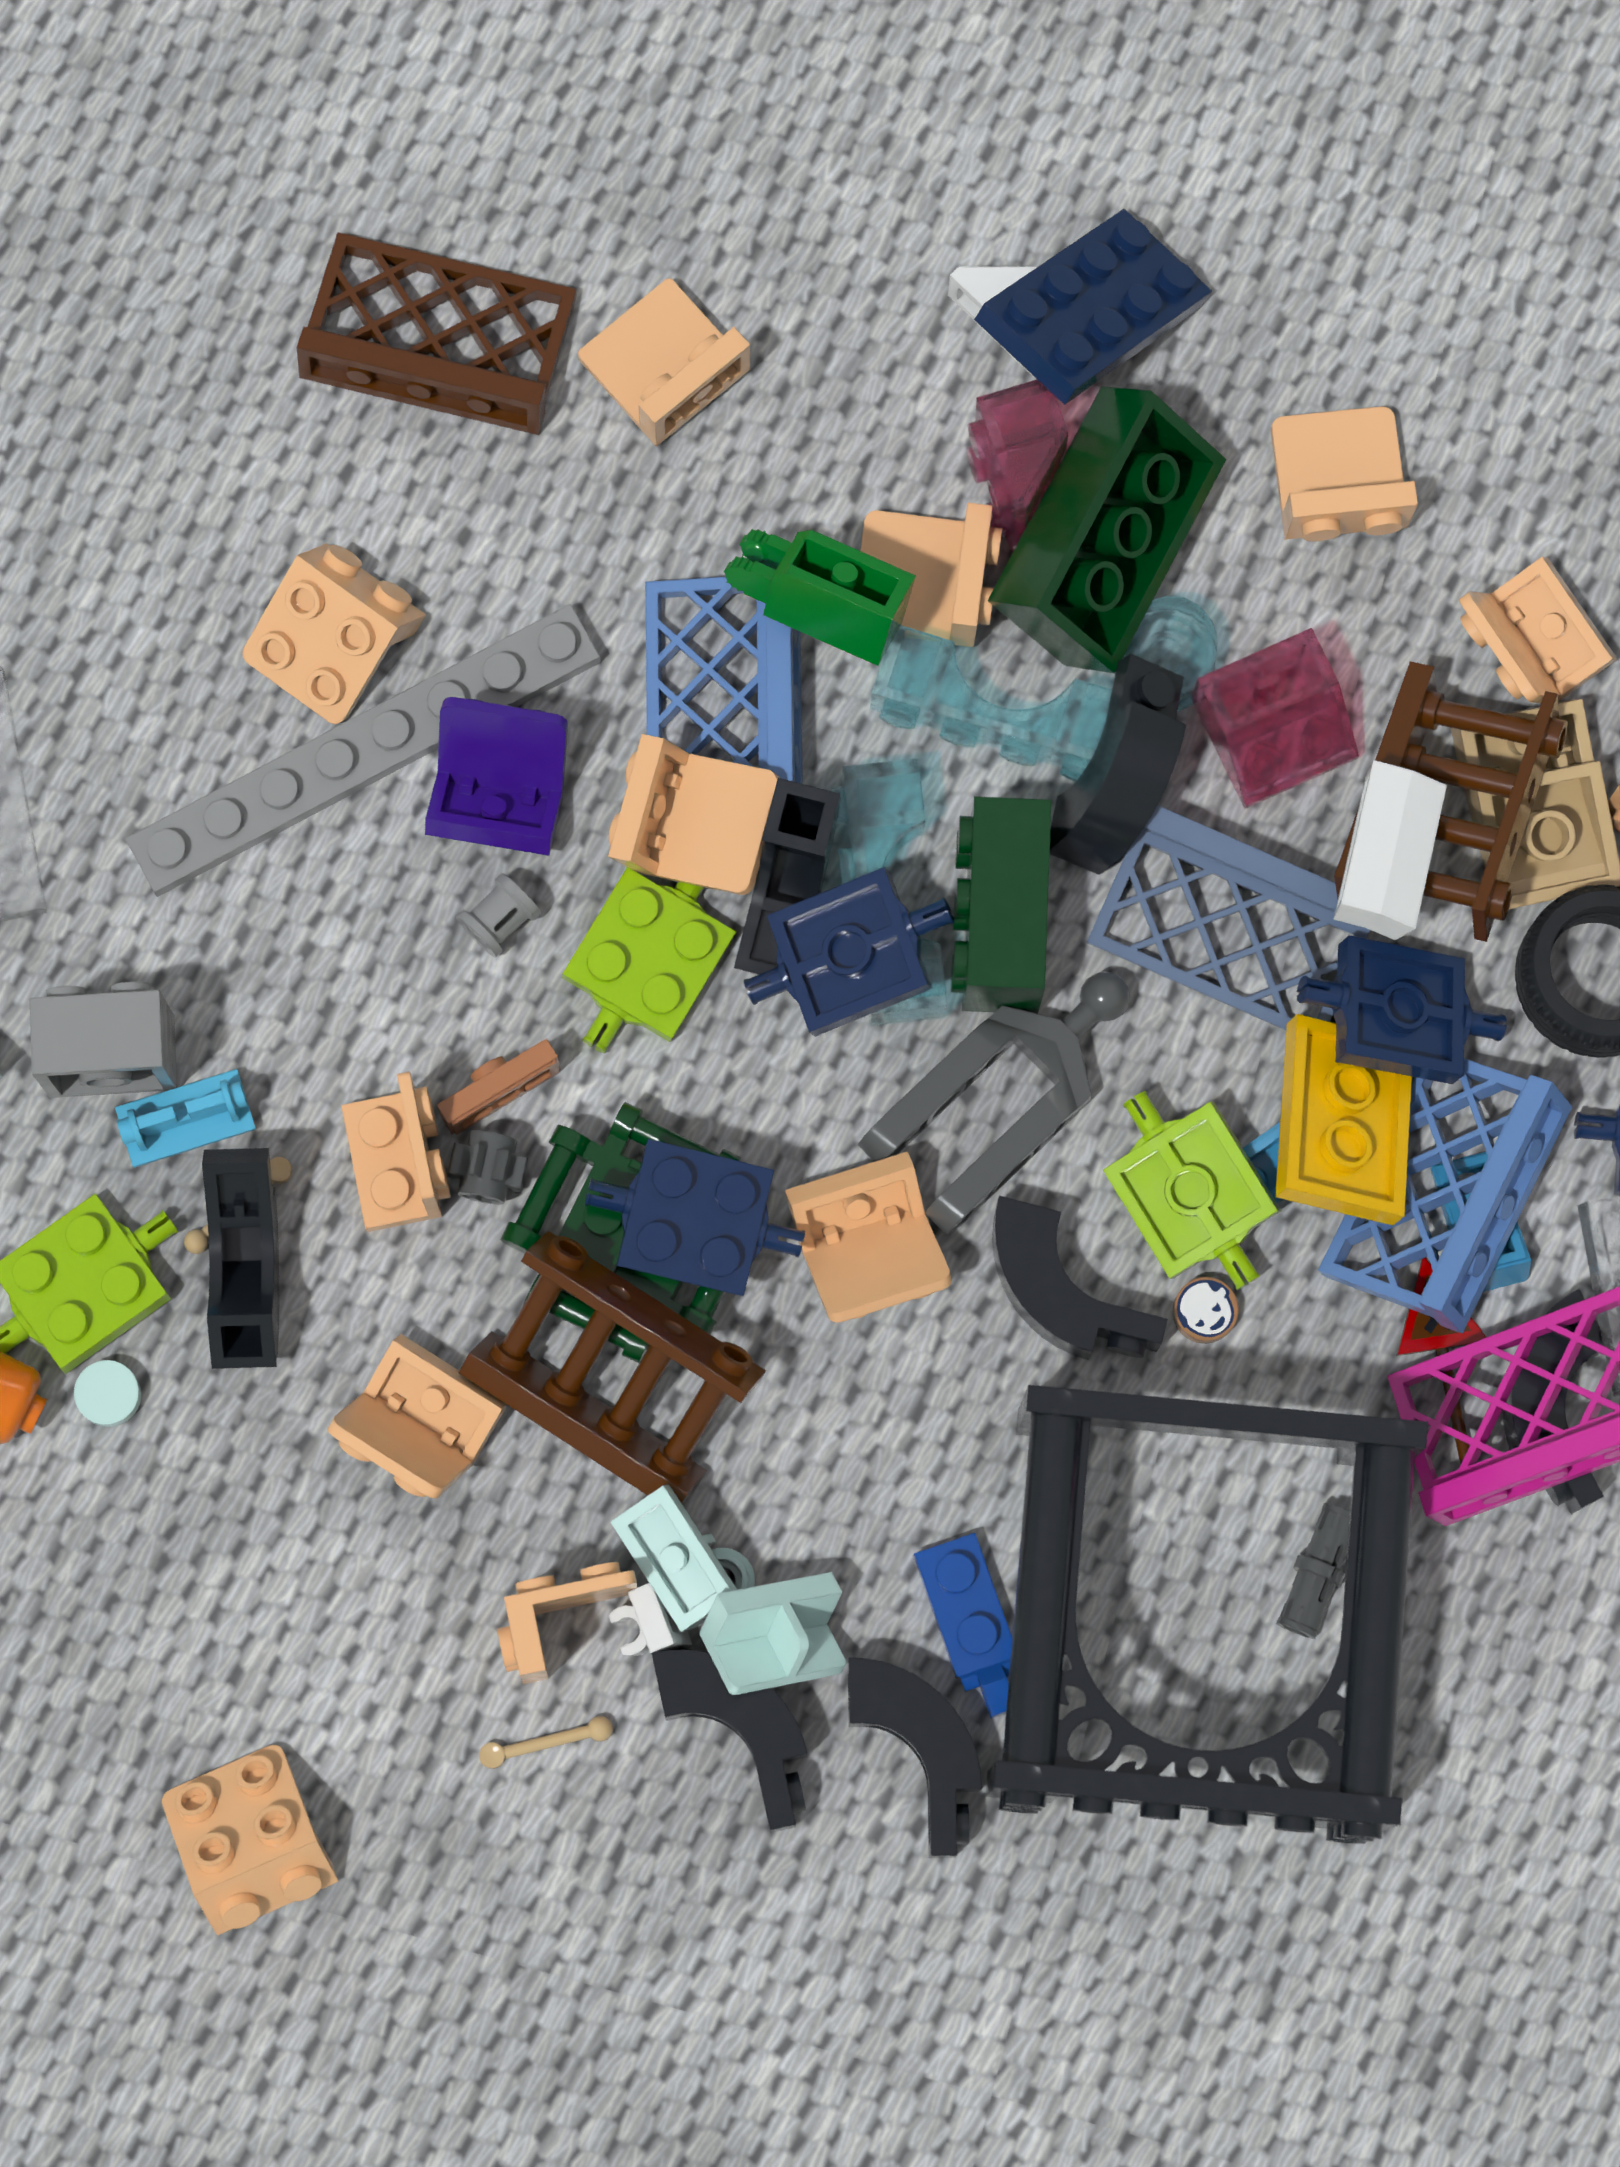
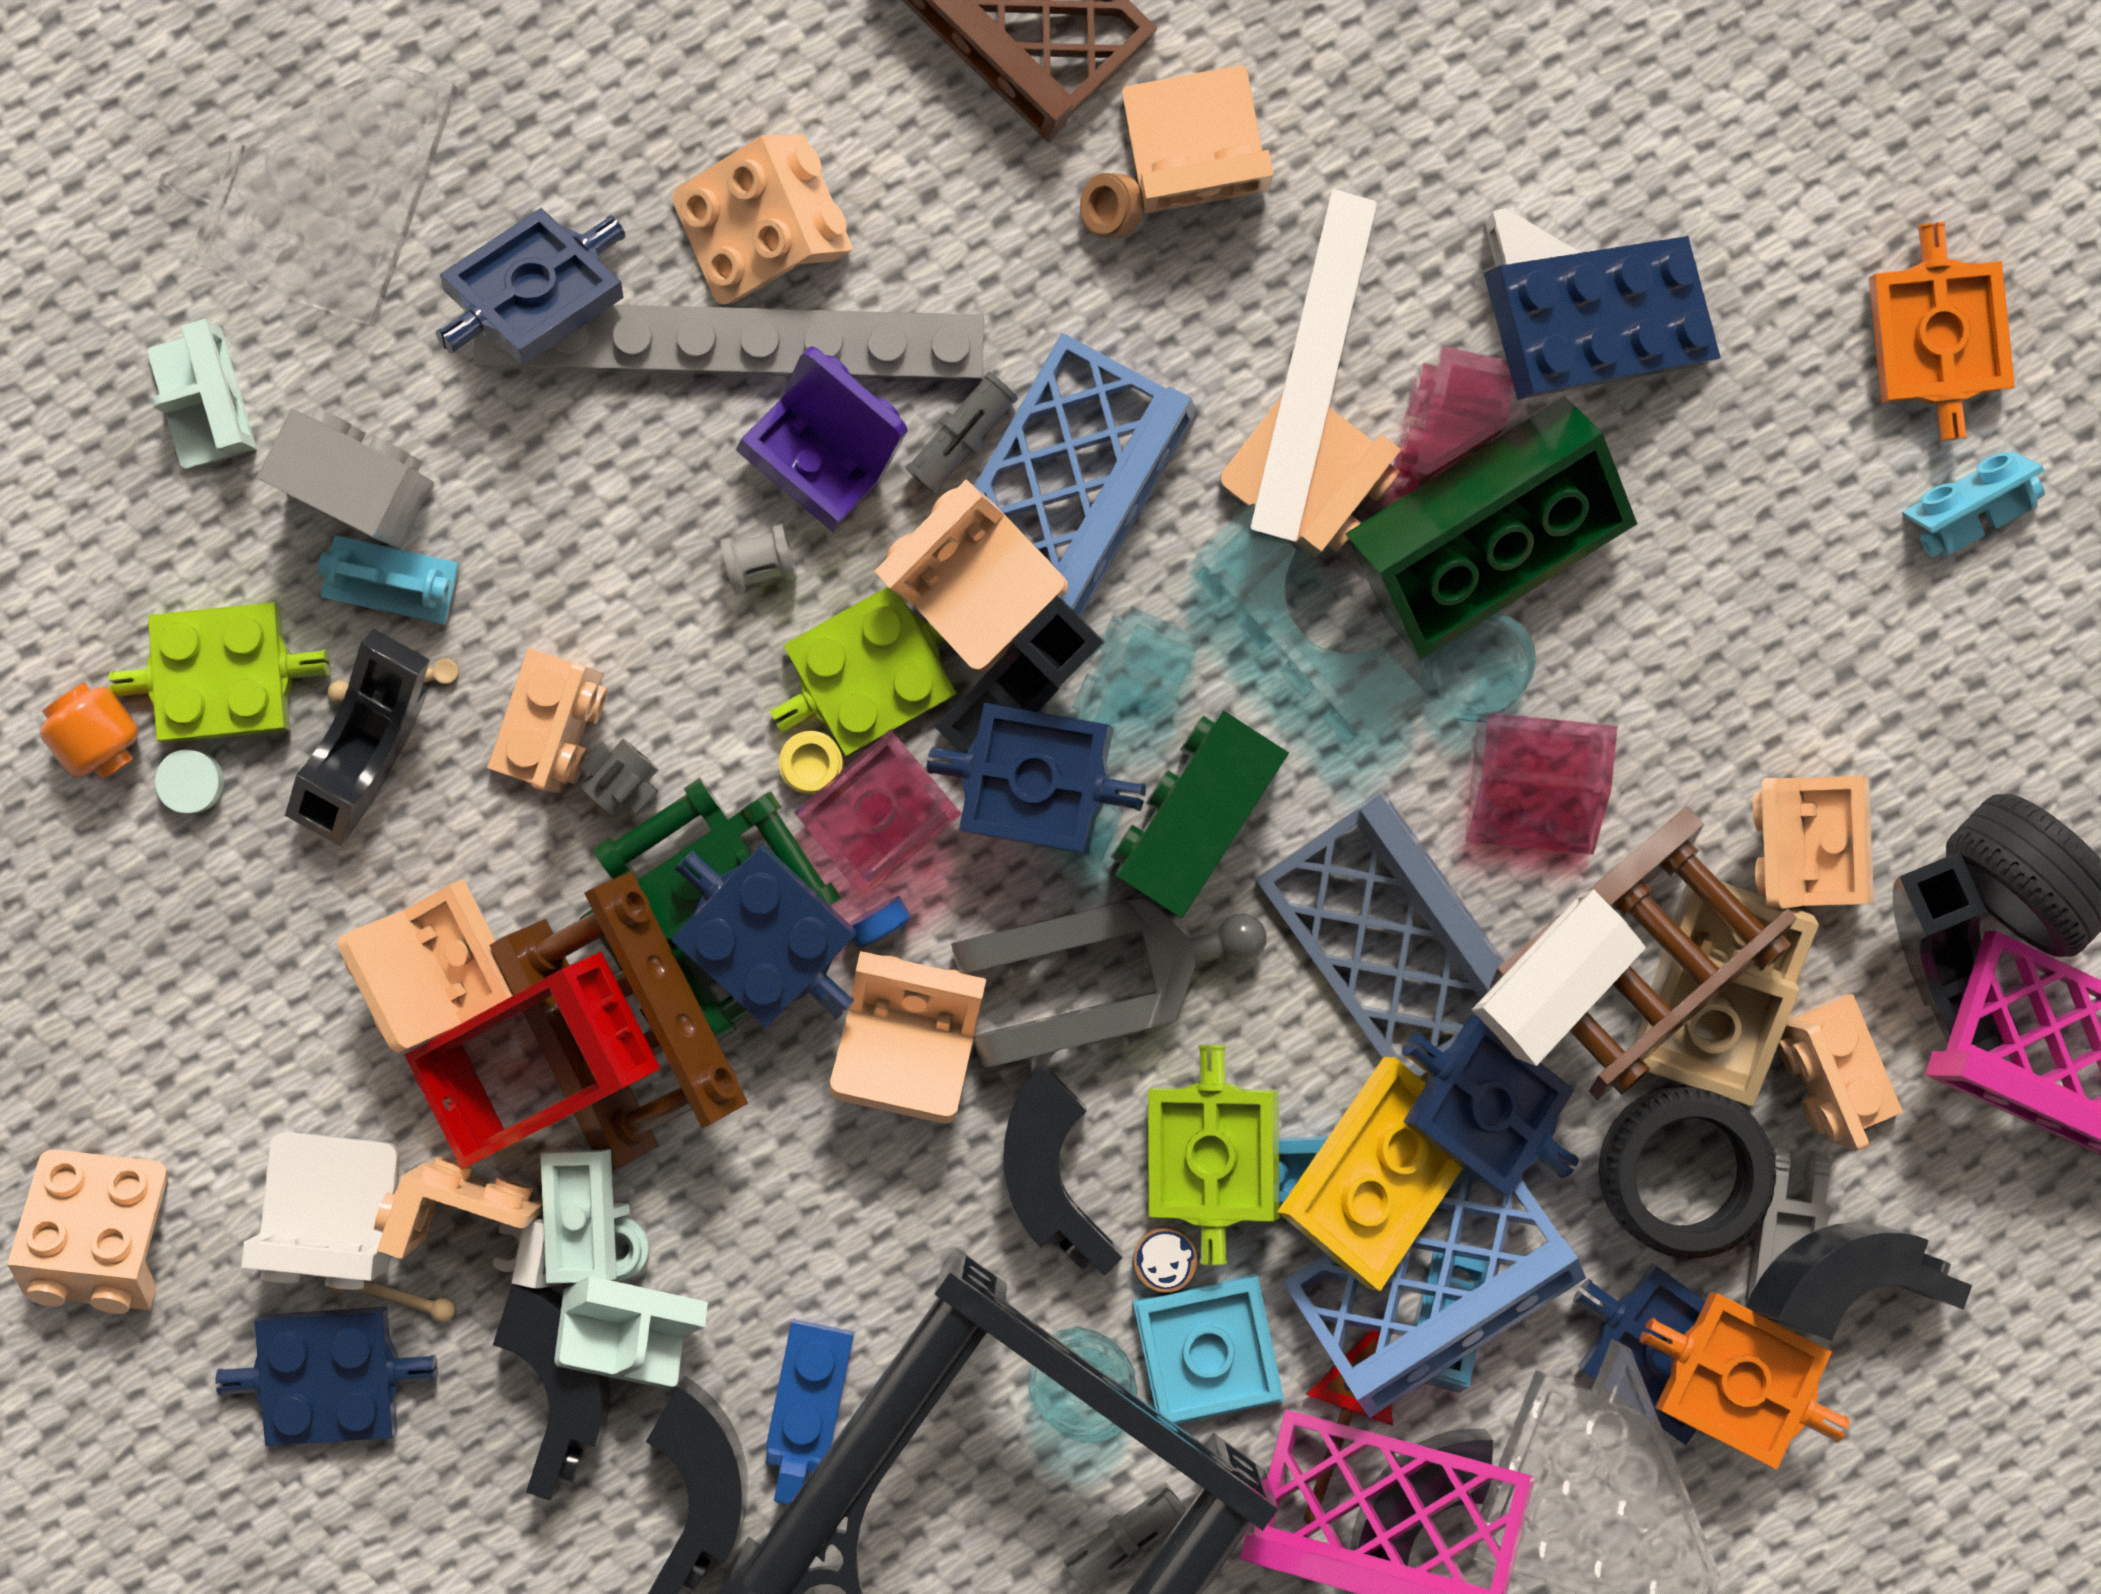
camera: 35 degrees right, 10 degrees up
(169, 793) = (531, 286): none -> dark blue plate
(444, 1692) = (323, 1210): none -> white bracket
(497, 1085) = (670, 709): nougat plate -> none
(530, 1845) = (326, 1376): none -> dark blue plate
(603, 751) = (992, 400): none -> dark grey pin
(606, 1366) = (599, 1025): none -> red window
(625, 453) = (1111, 205): none -> medium nougat tile
(644, 1064) = (810, 761): none -> light yellow tile
(729, 1068) = (877, 813): none -> clear pink slope
(787, 1160) = (880, 922): none -> blue tile
(824, 590) = (1203, 442): green hinge -> none
(874, 477) = (1313, 365): none -> white sticker
(1127, 772) = (1382, 756): black arch -> none
(1199, 1470) = (1066, 1411): none -> clear light blue piece
(1291, 1359) = (1208, 1349): none -> medium azure tile
(1341, 474) = (1732, 593): light nougat bracket -> none
(1381, 167) = (1941, 332): none -> orange plate
(1508, 264) = (2001, 487): none -> medium azure hinge

